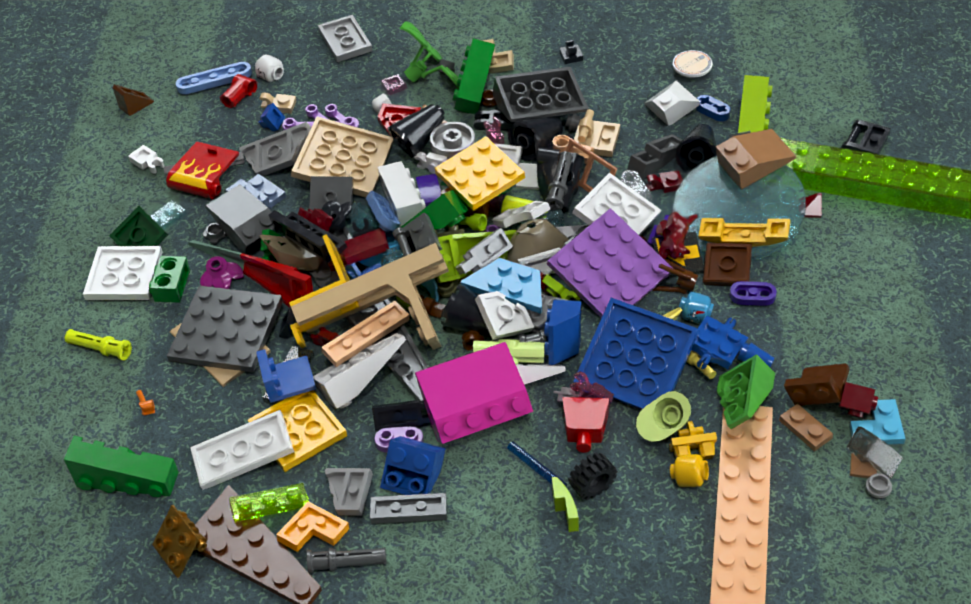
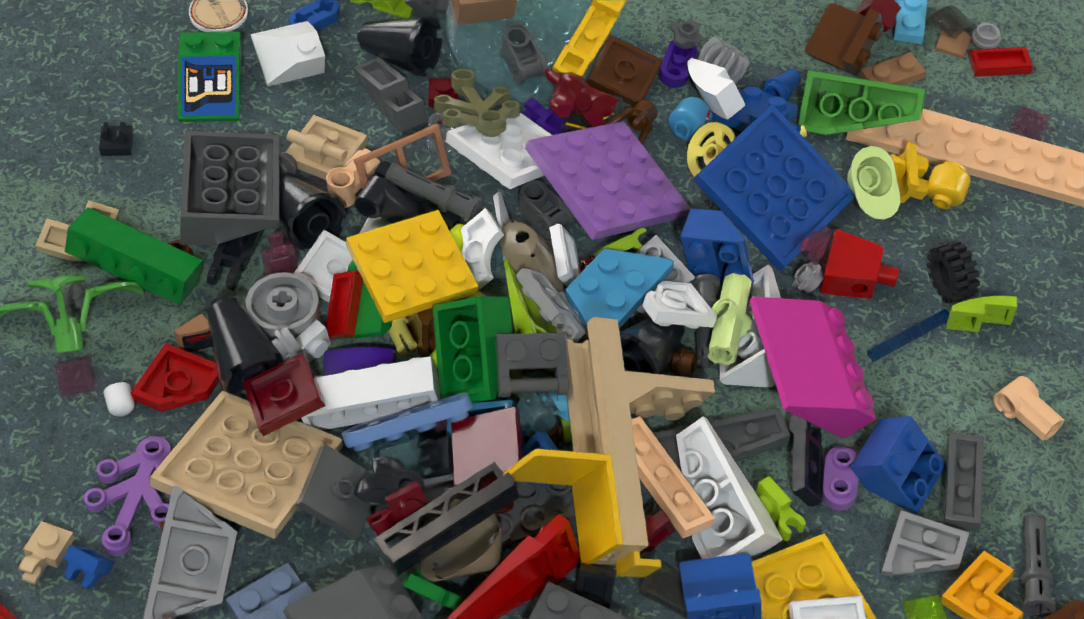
camera: 85 degrees left, 5 degrees up
(363, 403) = (779, 508): none -> lime plate
(389, 156) = (283, 394): none -> dark red tile
(421, 145) = (285, 342): none -> light grey plate
(486, 538) = (1022, 401): none -> light nougat piece
(625, 190) = (487, 121): none -> olive plant
(635, 74) = (209, 76): none -> slope
(702, 200) = (522, 59): none -> dark grey piece
(719, 306) = (715, 88): none -> white slope
(759, 313) = (725, 55): none -> light grey gear
(777, 290) = (686, 34): none -> dark grey plate
(789, 527) = (1030, 123): none -> clear pink tile
(855, 500) = (1000, 61): none -> red tile

